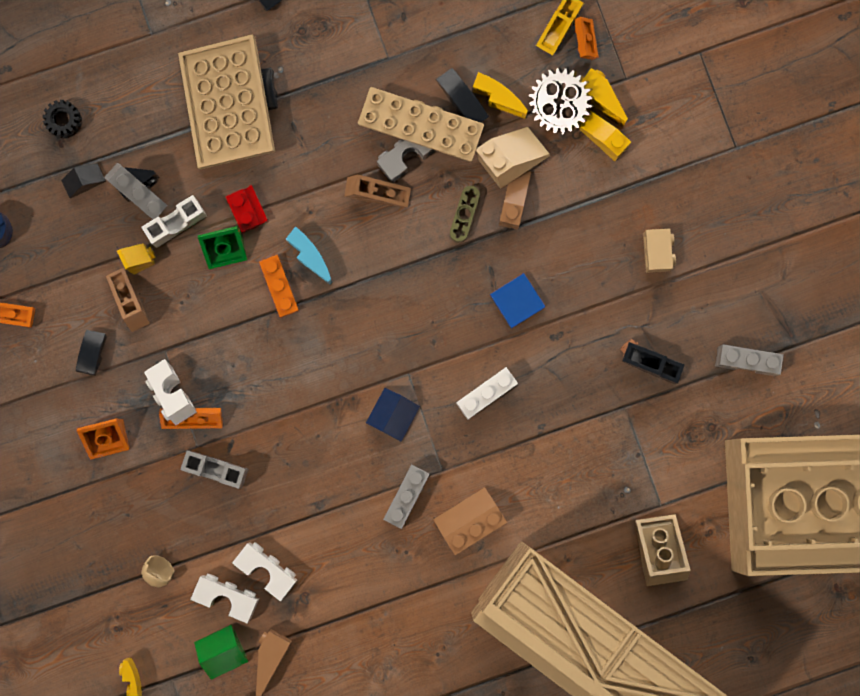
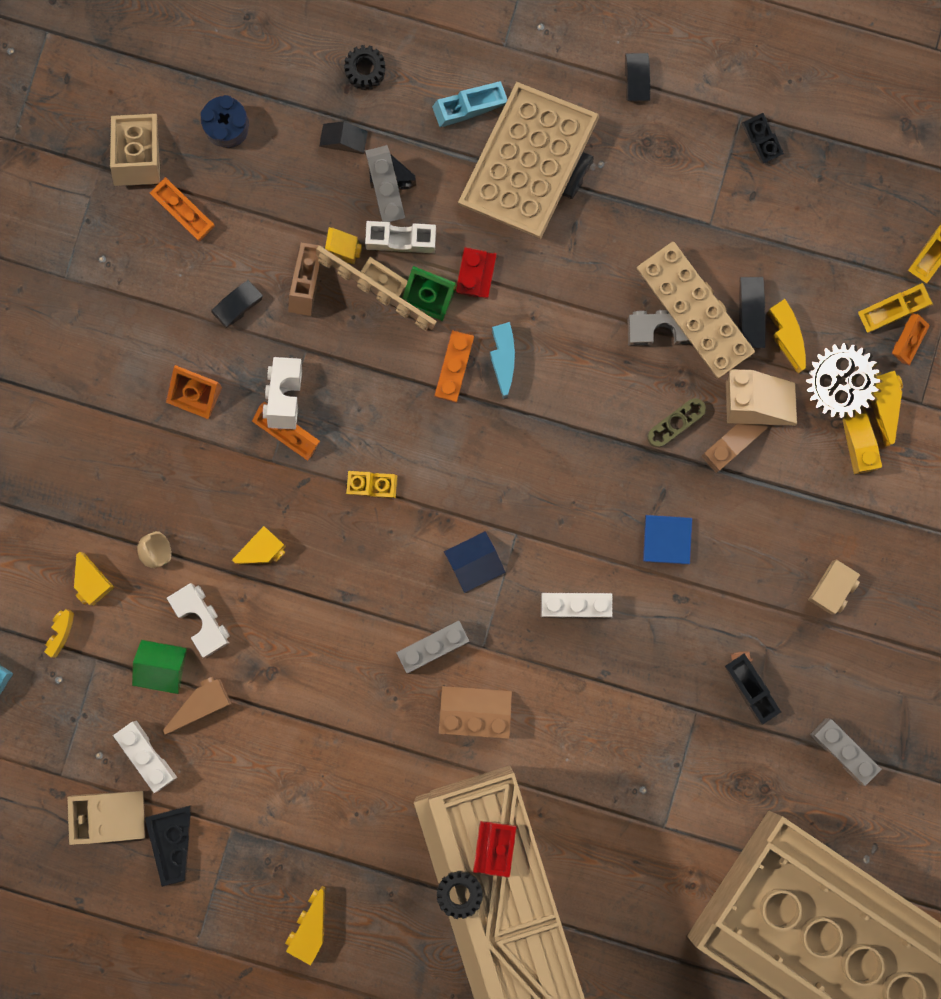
camera: 30 degrees right, 0 degrees up
(126, 627) = (89, 581): none -> yellow slope
(155, 92) = (469, 103): none -> medium azure slope
(182, 263) = (380, 281): none -> tan bracket
(214, 469) = (273, 493): light grey arch -> none
(233, 515) = (261, 549): none -> yellow slope
(280, 412) = (371, 484): none -> yellow slope
(280, 580) = (261, 640): white arch -> none
(376, 191) = (609, 343): medium nougat slope -> none
(554, 678) = (456, 910): none -> black tyre
(556, 613) = (494, 848): none -> red plate
(662, 550) = (635, 869): tan slope -> none

